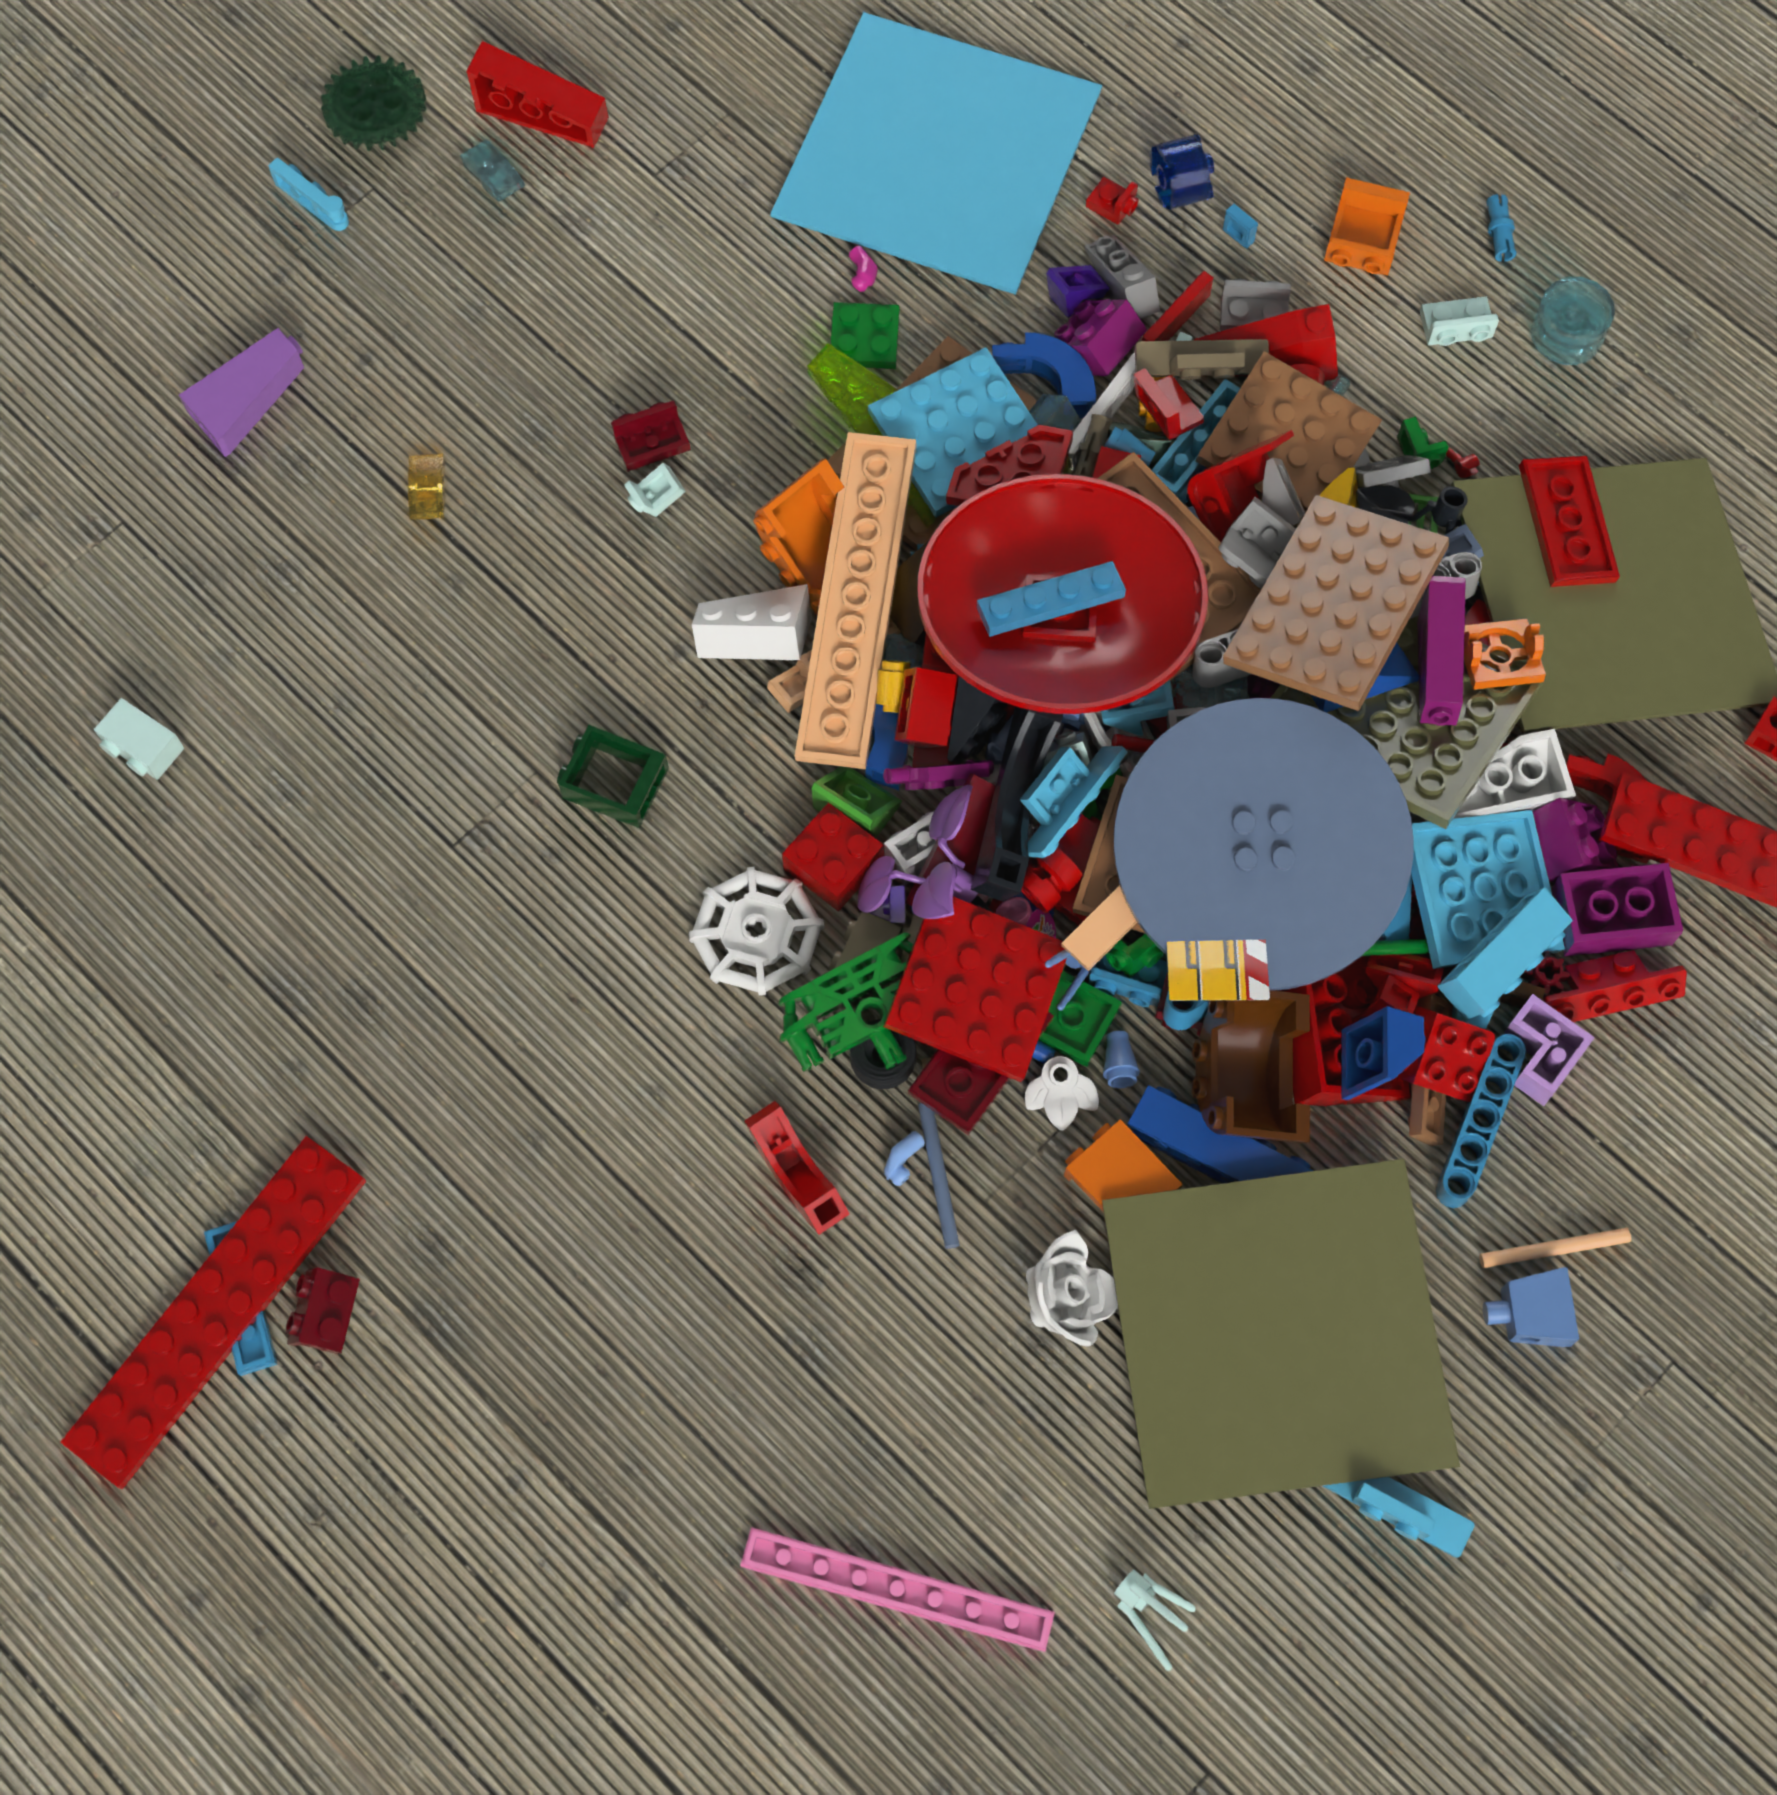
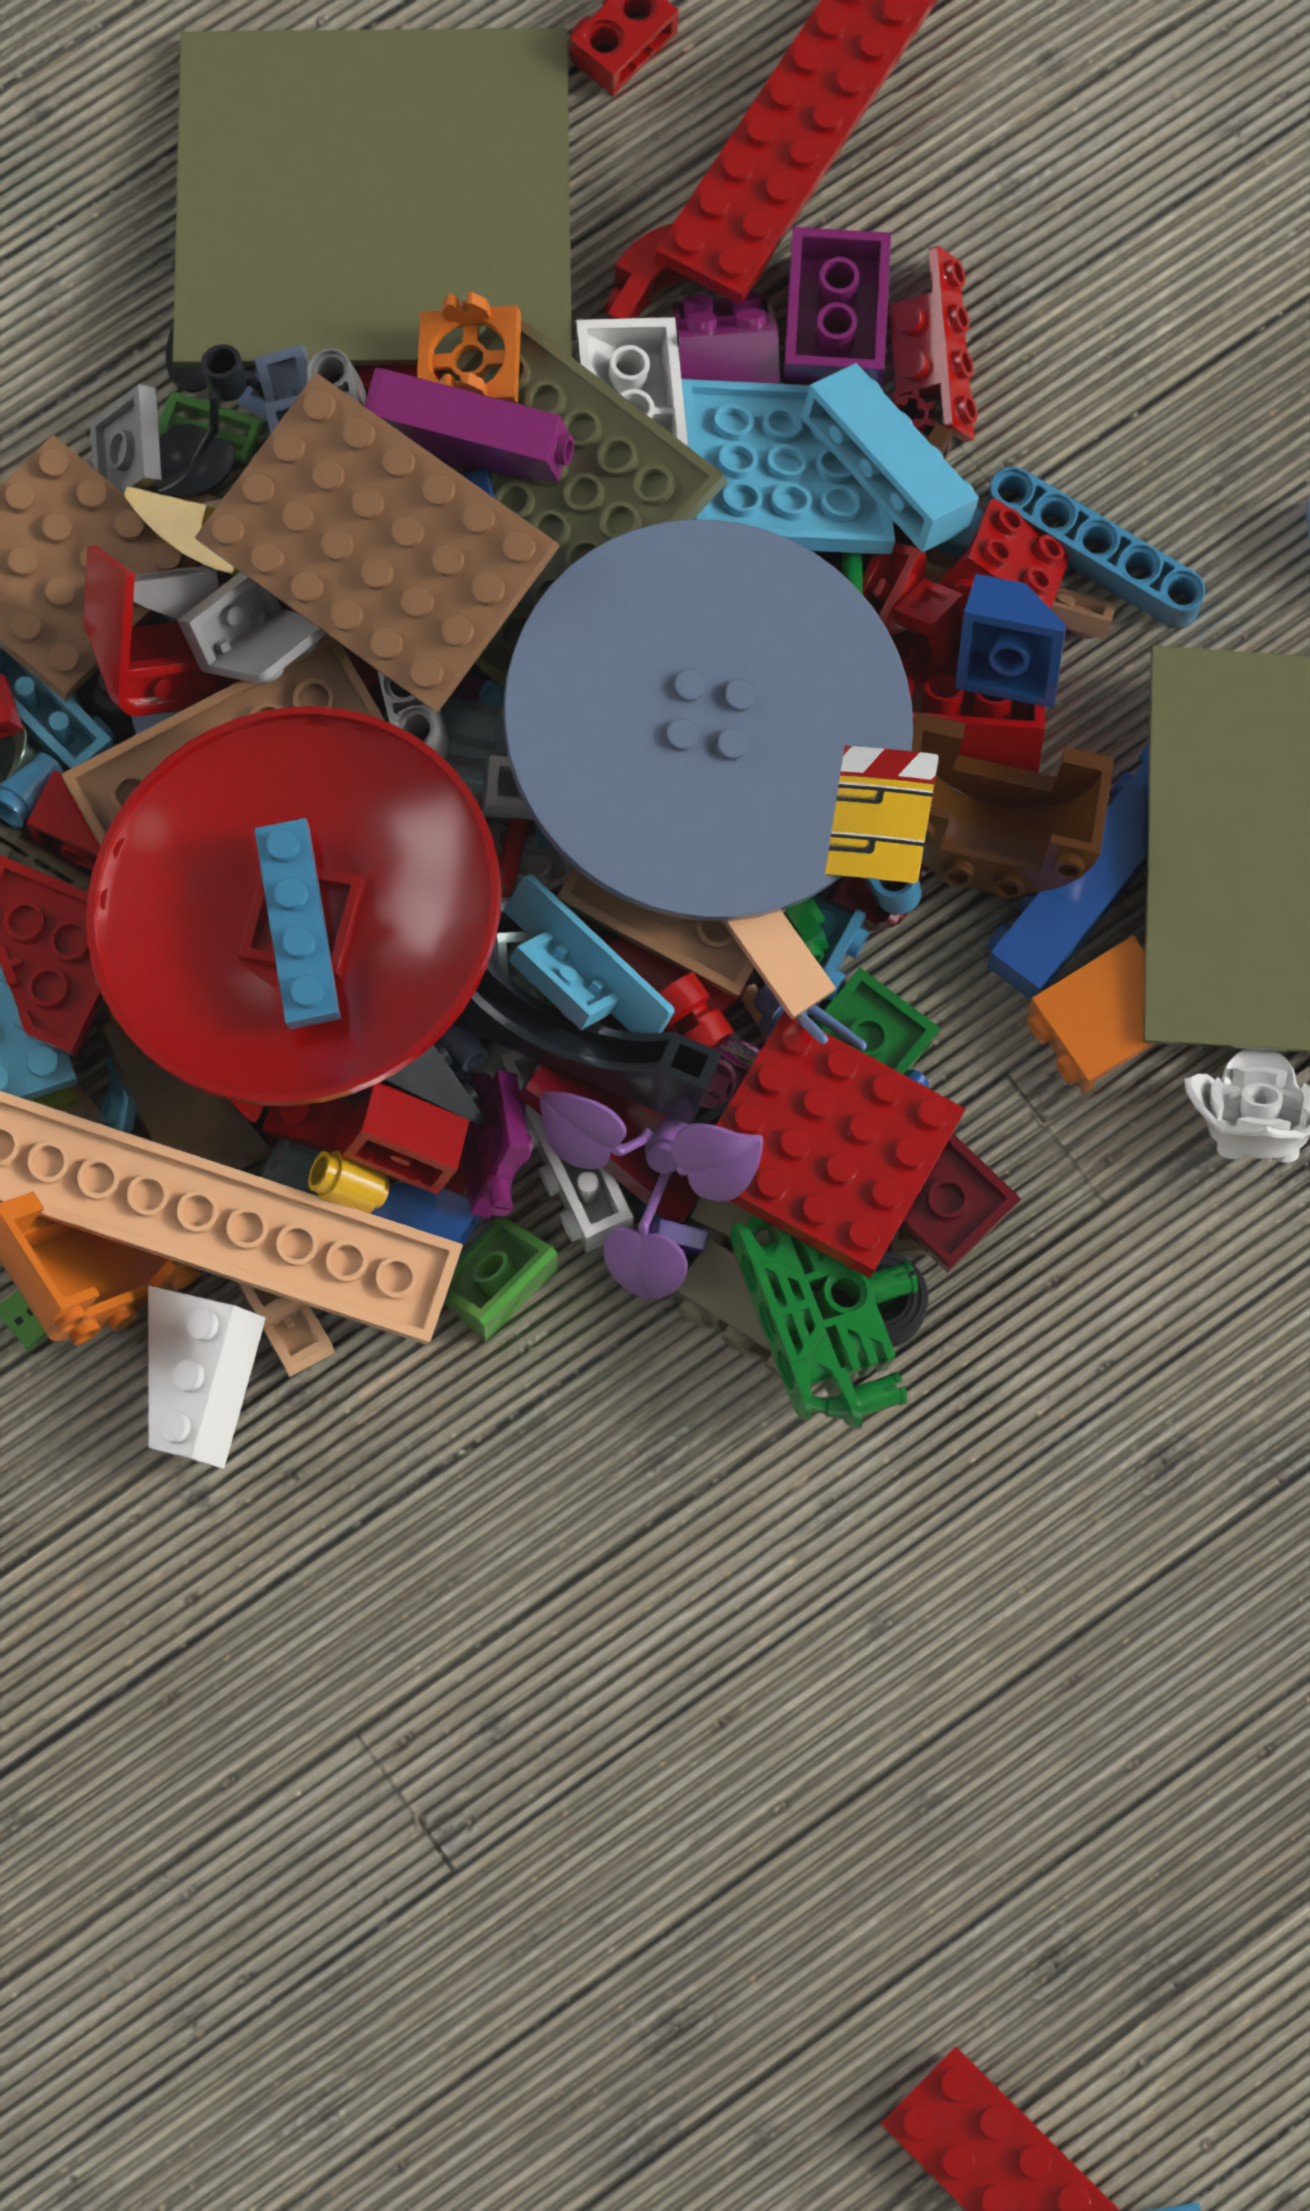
camera: 85 degrees left, 5 degrees up
(322, 1310) = (1135, 2128): dark red bracket -> none
(645, 790) = (422, 1570): dark green window -> none
(765, 948) = (677, 1475): white plate -> none
(794, 1169) = (1041, 1438): red arch -> none
(832, 856) = (579, 1319): red brick -> none
(899, 1154) = (1027, 1300): light blue arm -> none
(939, 1177) = (1064, 1256): sand blue bar -> none
(1061, 1098) = (978, 1075): white plate -> none
(1120, 1063) = (941, 987): medium blue cone -> none
(1415, 442) = (78, 404): green bracket -> none
(1464, 466) = (125, 350): red hand -> none
(1552, 1042) = (1019, 432): lavender brick -> none
(1555, 1247) = (1272, 499): light nougat bar -> none
(1569, 521) = (260, 227): red tile -> none

